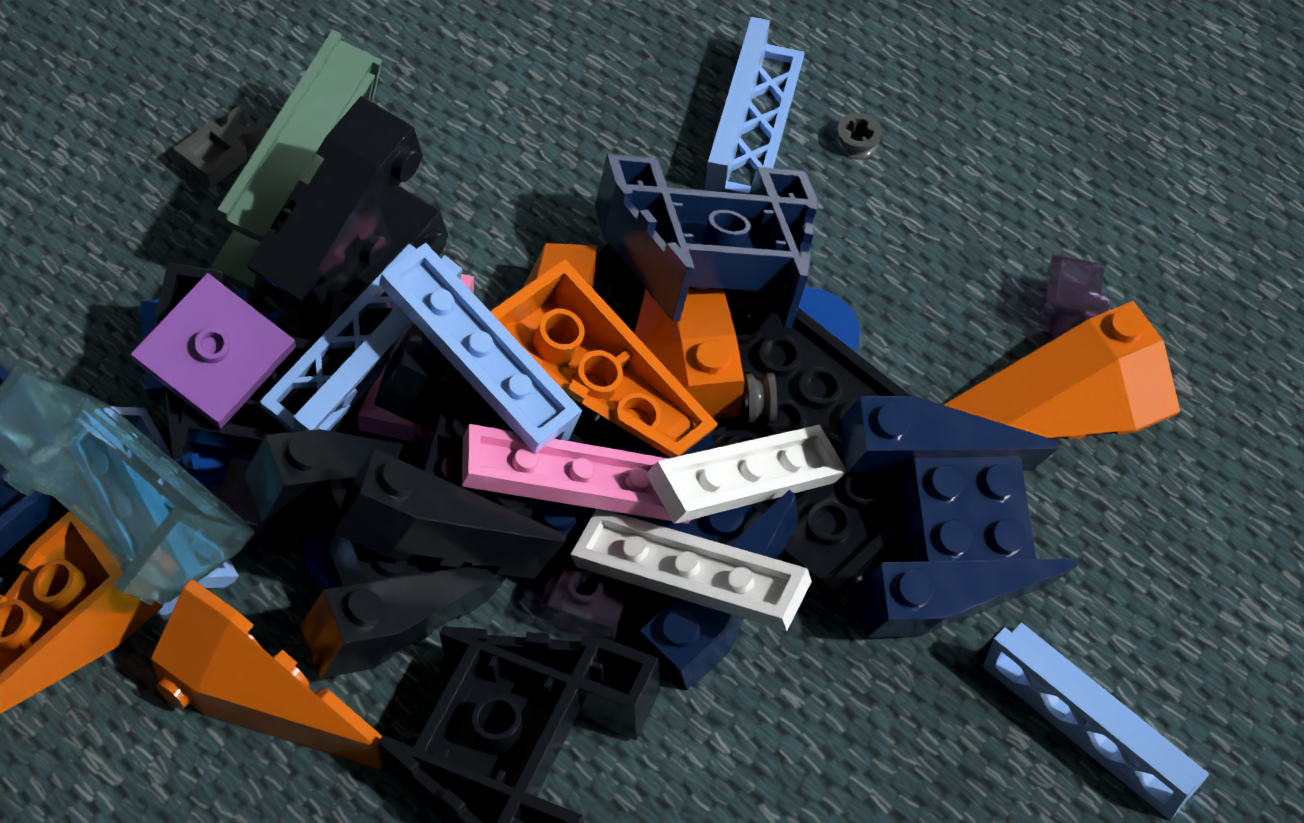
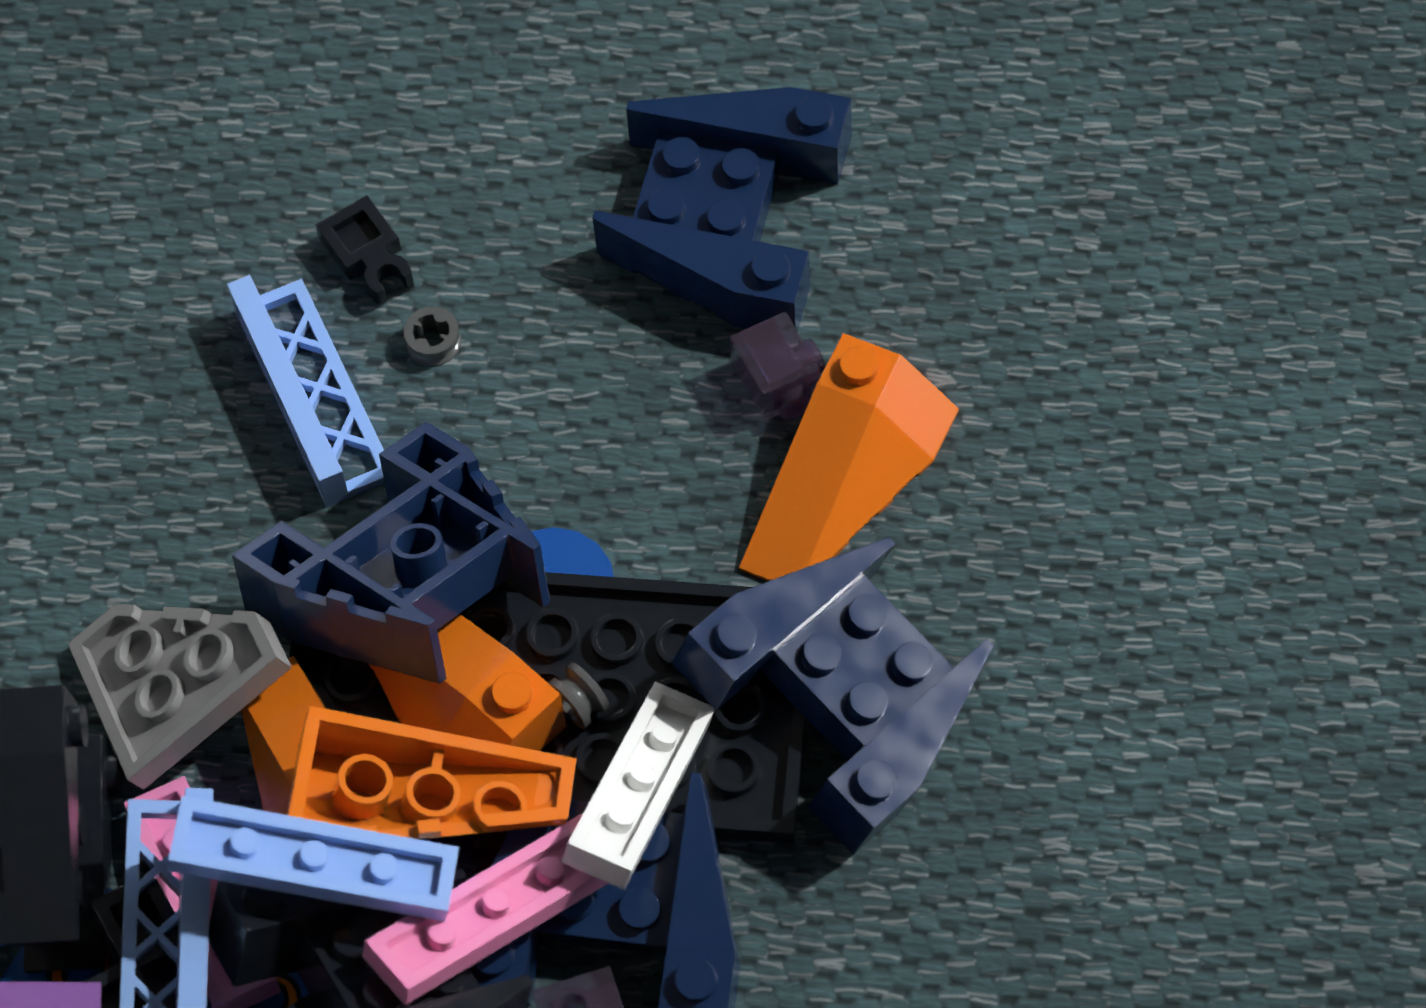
camera: 30 degrees left, 5 degrees up
(514, 210) = (172, 678): none -> light grey plate
(692, 568) = (665, 918): white plate -> none
(859, 58) = (365, 243): none -> black plate
(1094, 720) = (1109, 776): light blue fence -> none
(1121, 166) = (713, 191): none -> dark blue wedge

